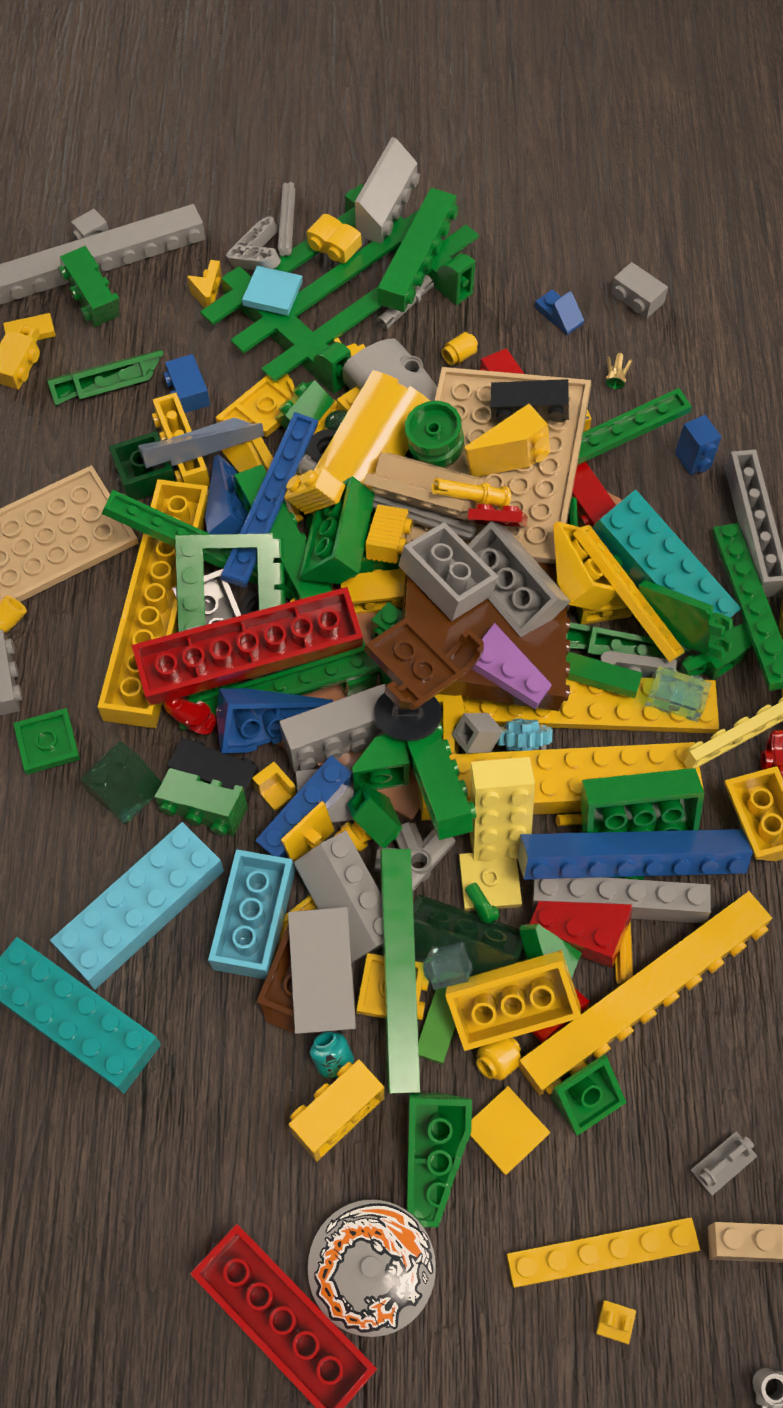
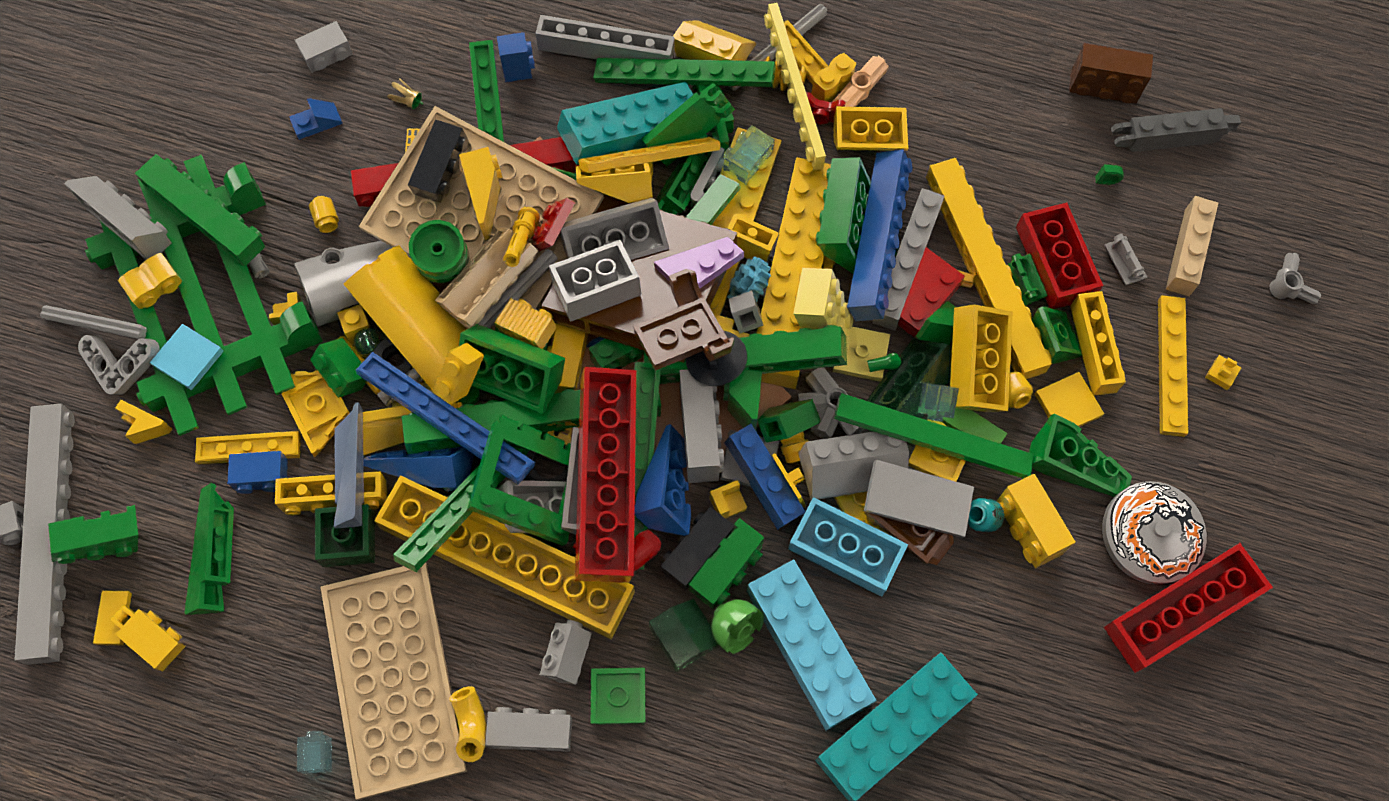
camera: 75 degrees left, 5 degrees up
(75, 680) = (565, 652): none -> light grey brick
(139, 825) = (735, 623): none -> bright green cylinder
(211, 370) = (217, 449): none -> yellow tile
(576, 721) = (753, 238): none -> yellow slope
(590, 1143) = (1097, 343): none -> yellow brick
(651, 1043) = (1027, 278): none -> green hinge
(691, 1071) = (1058, 254): none -> red brick

